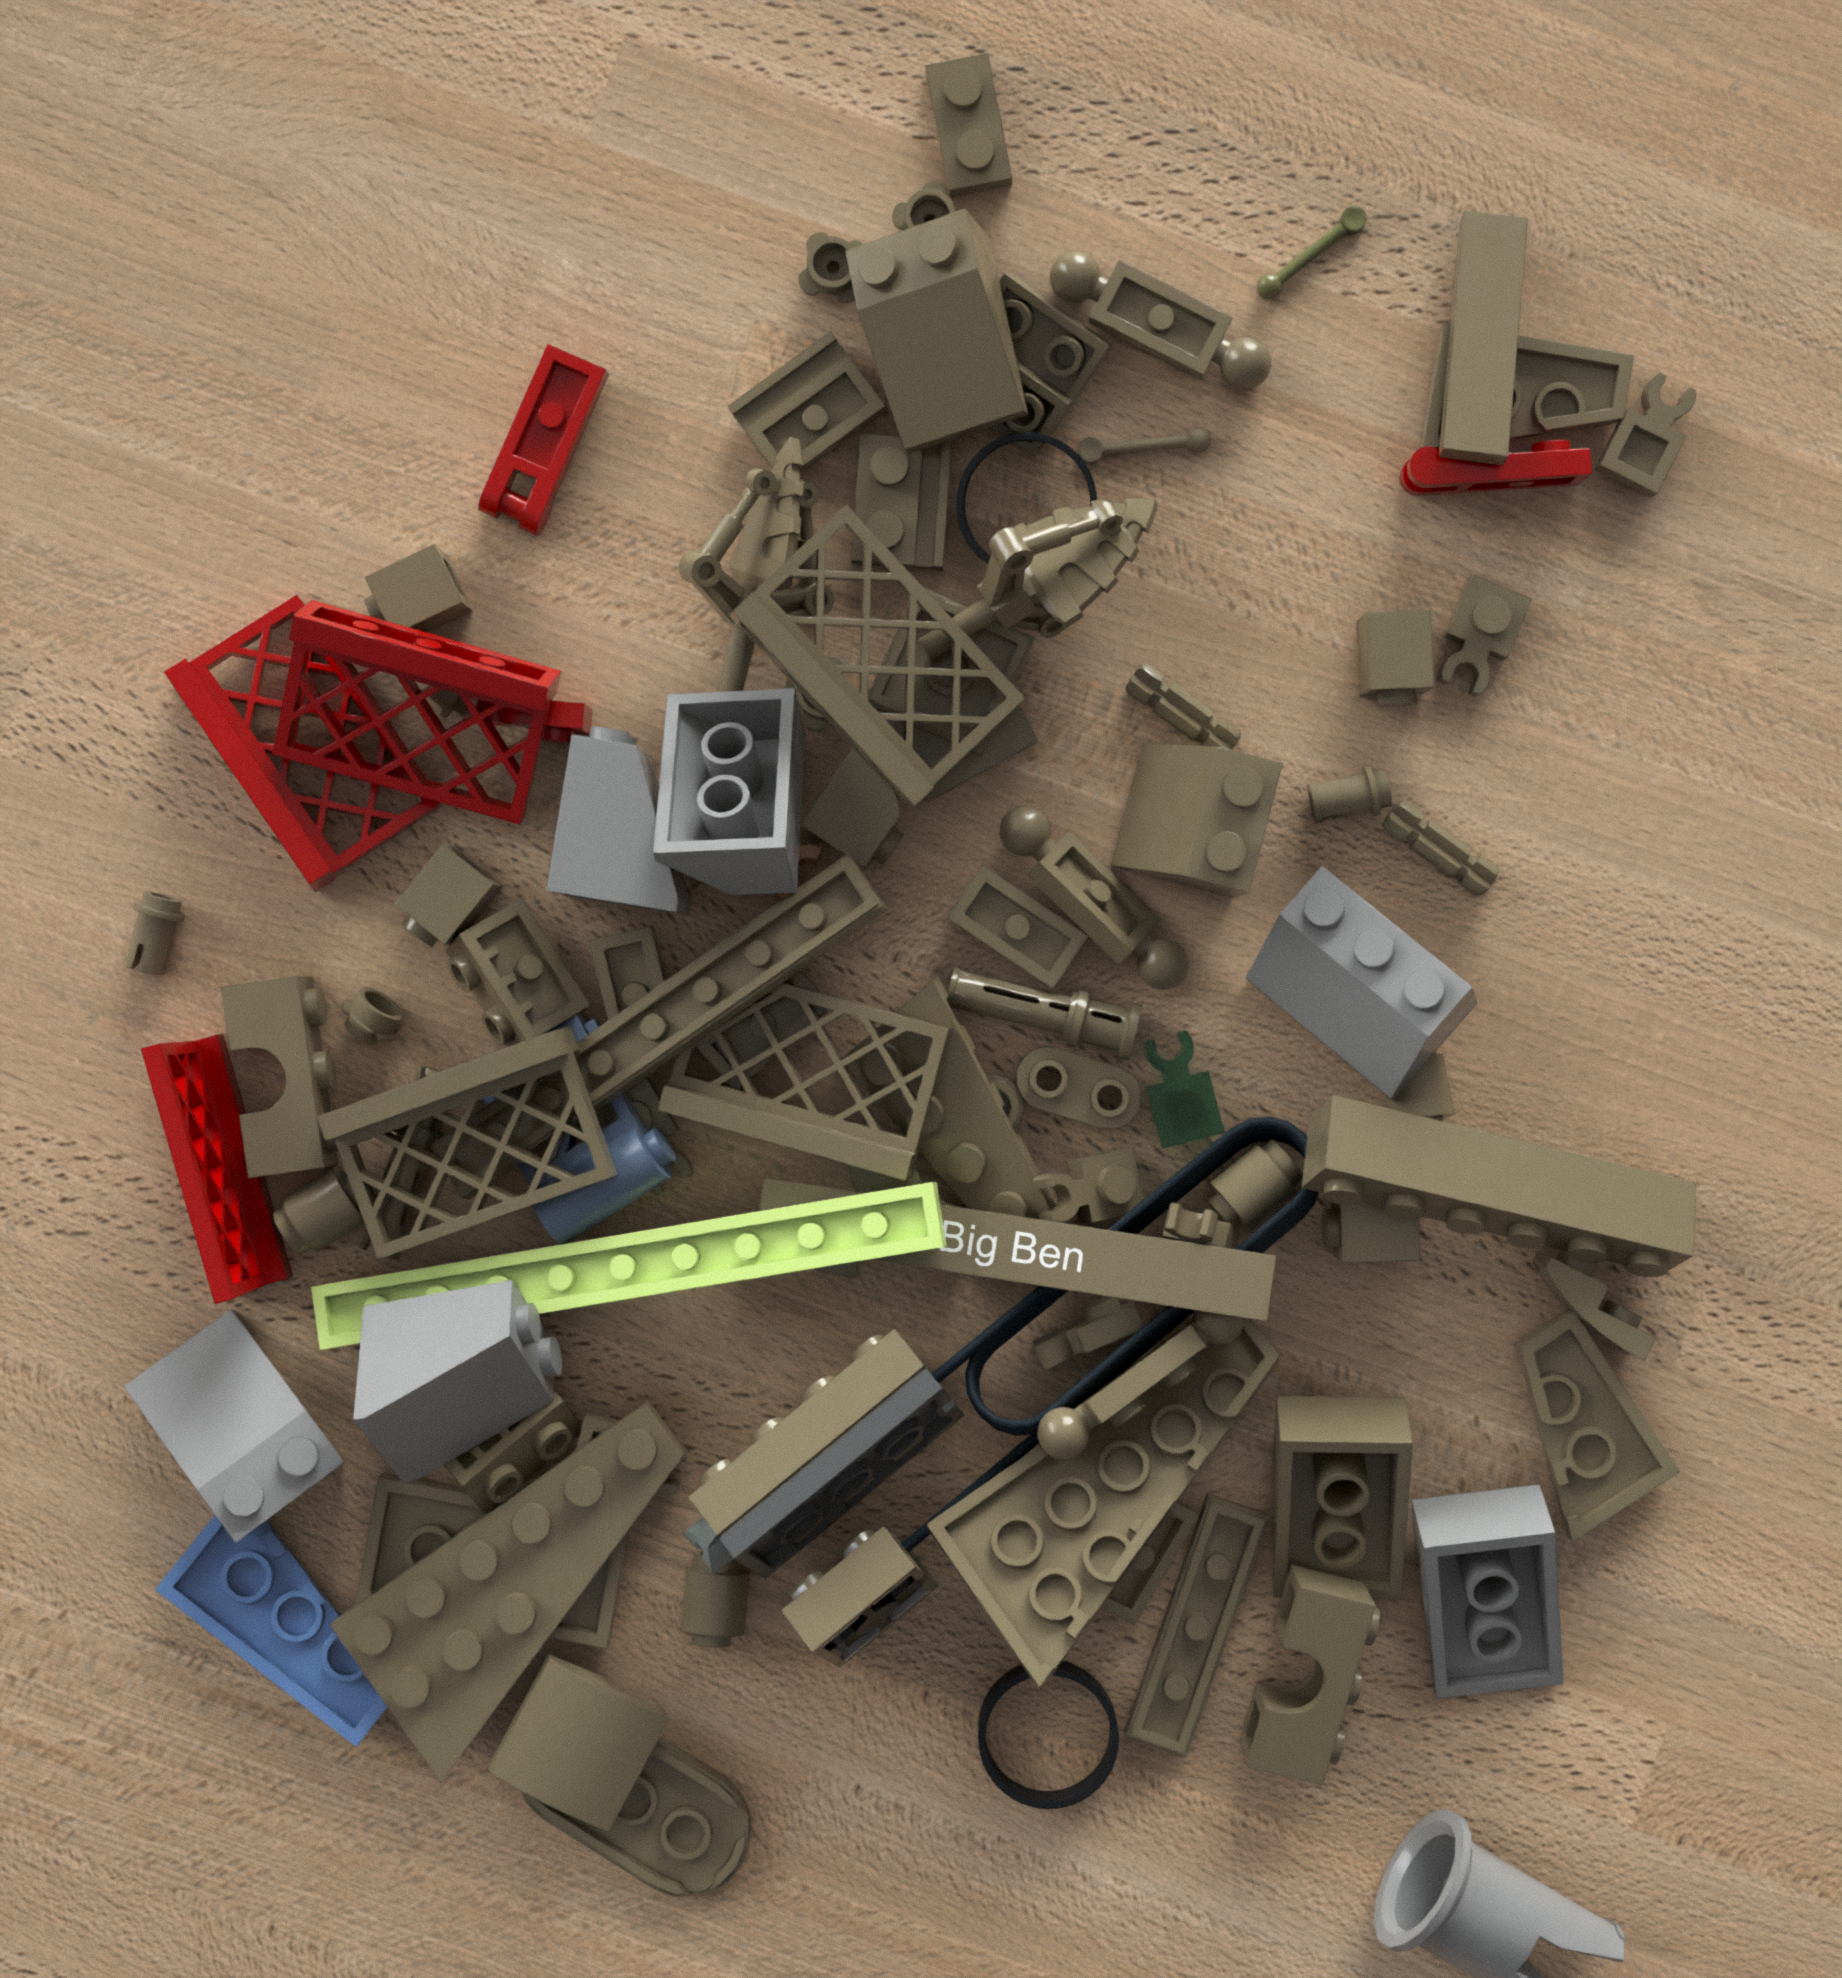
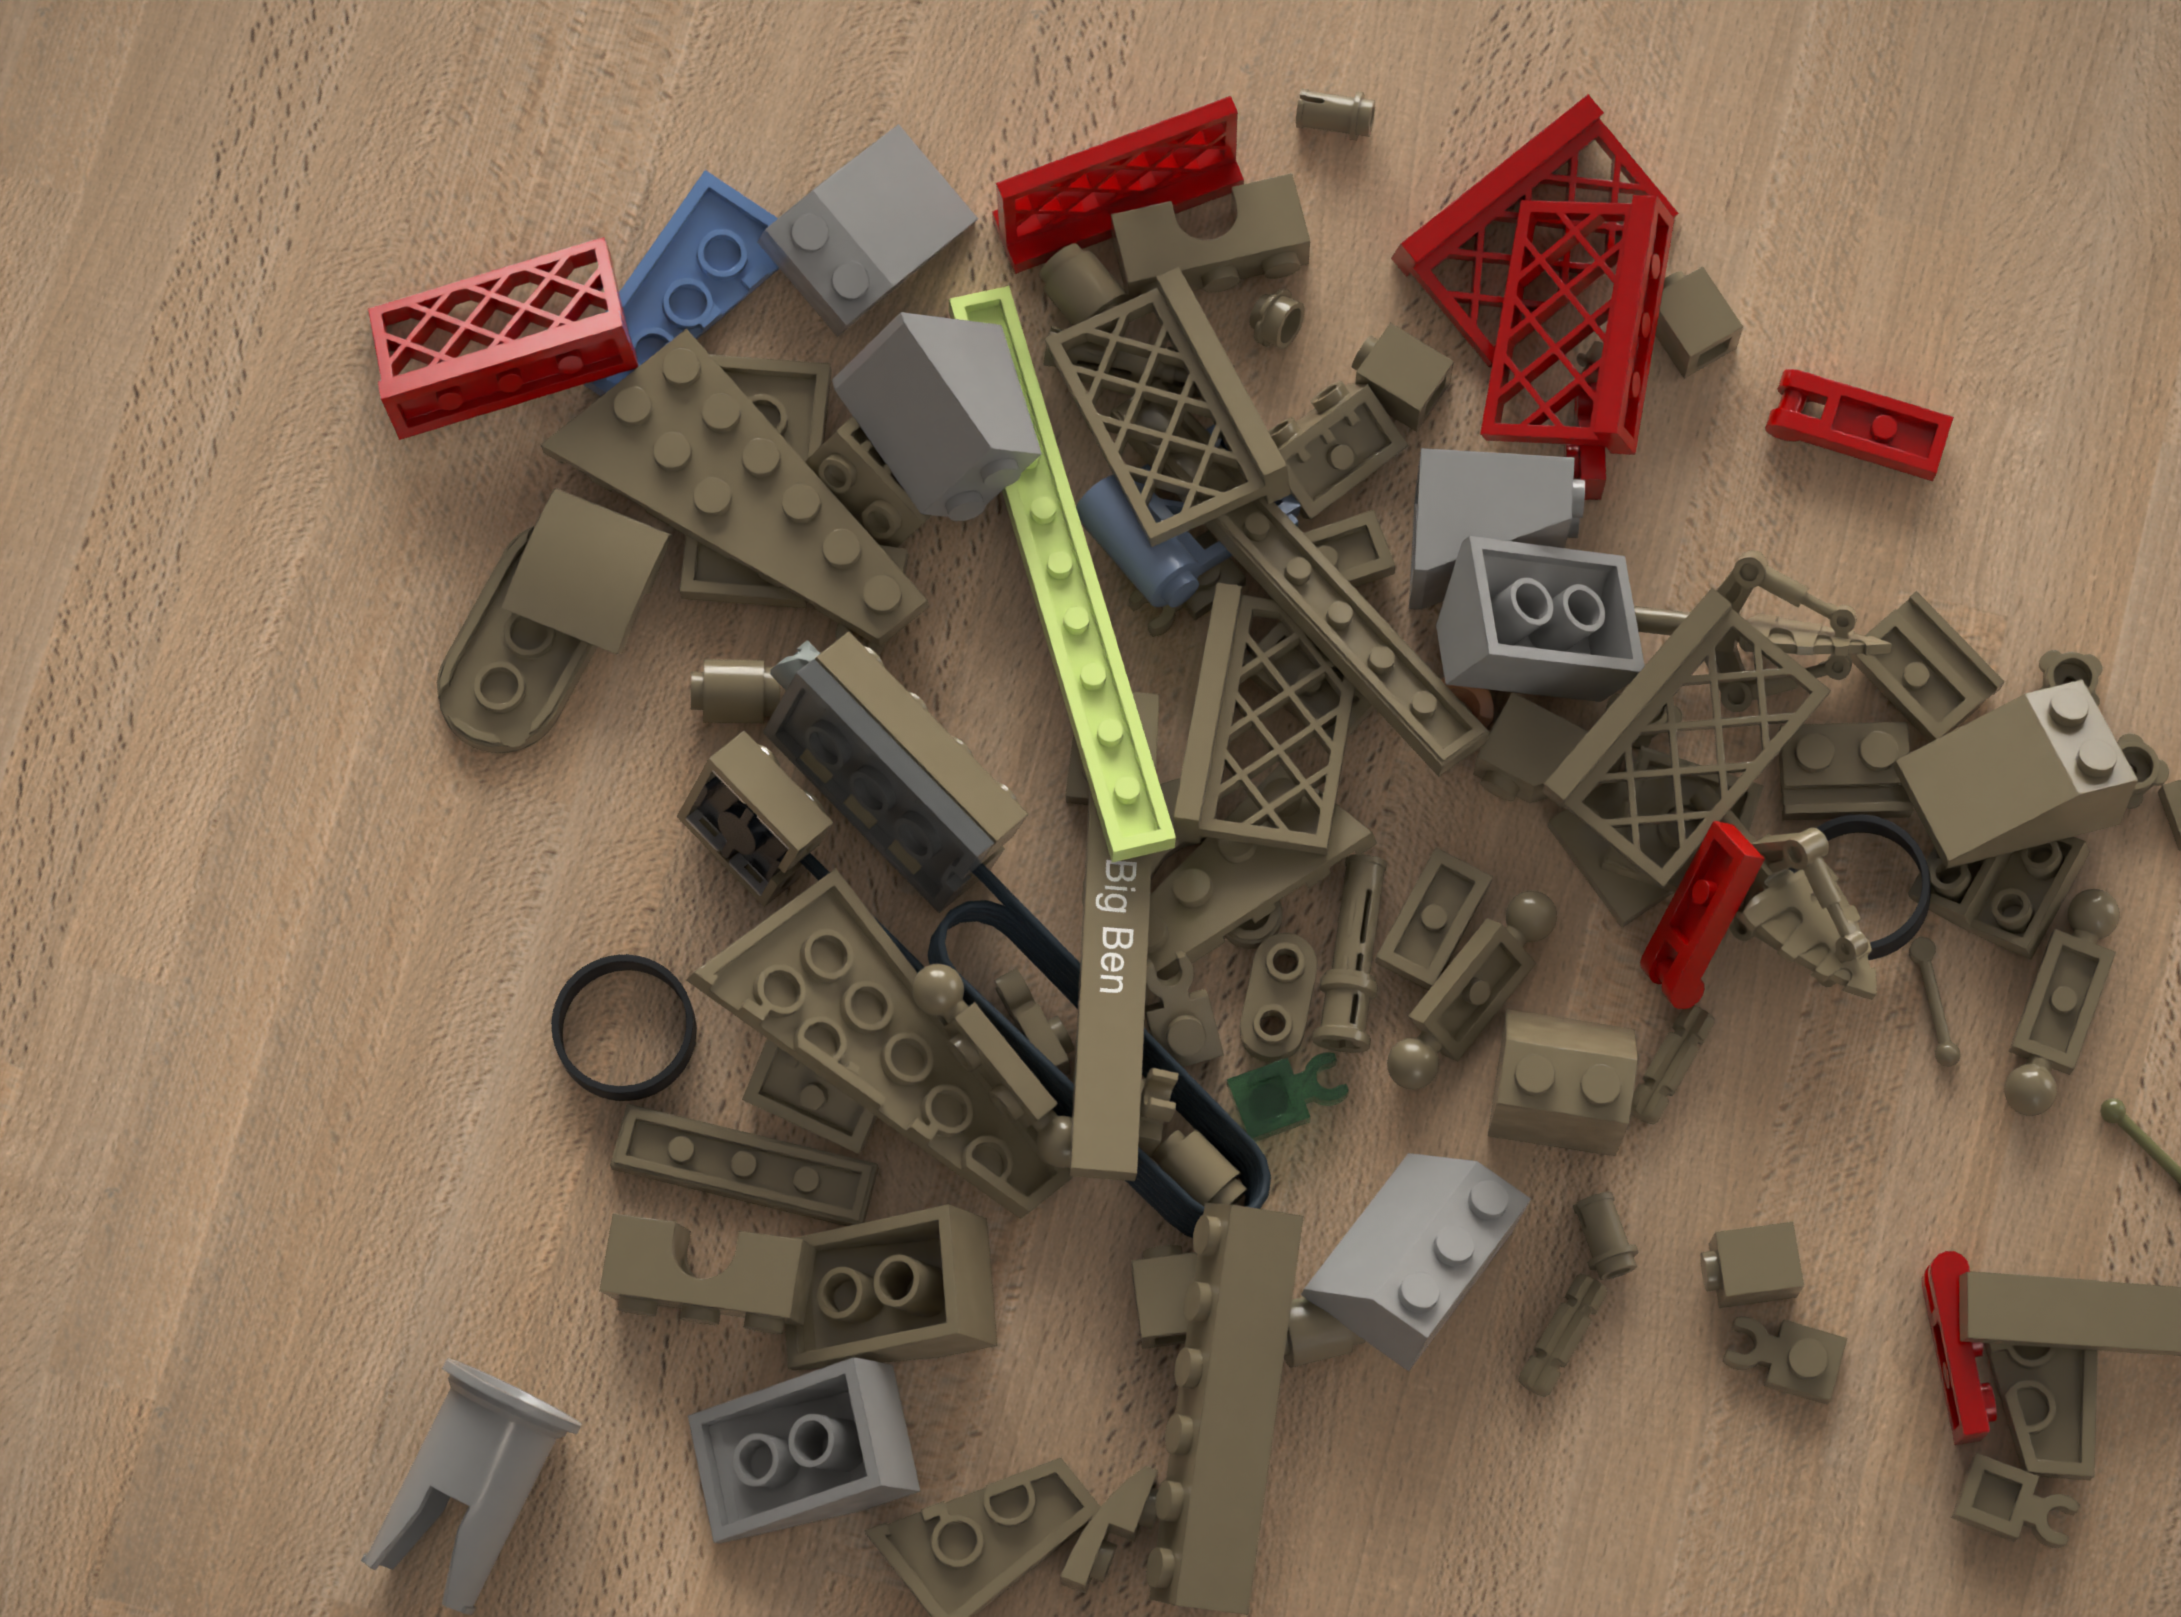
camera: 90 degrees right, 15 degrees down
(357, 1812) = (510, 367): none -> red fence
(1050, 662) = (1700, 914): none -> red plate

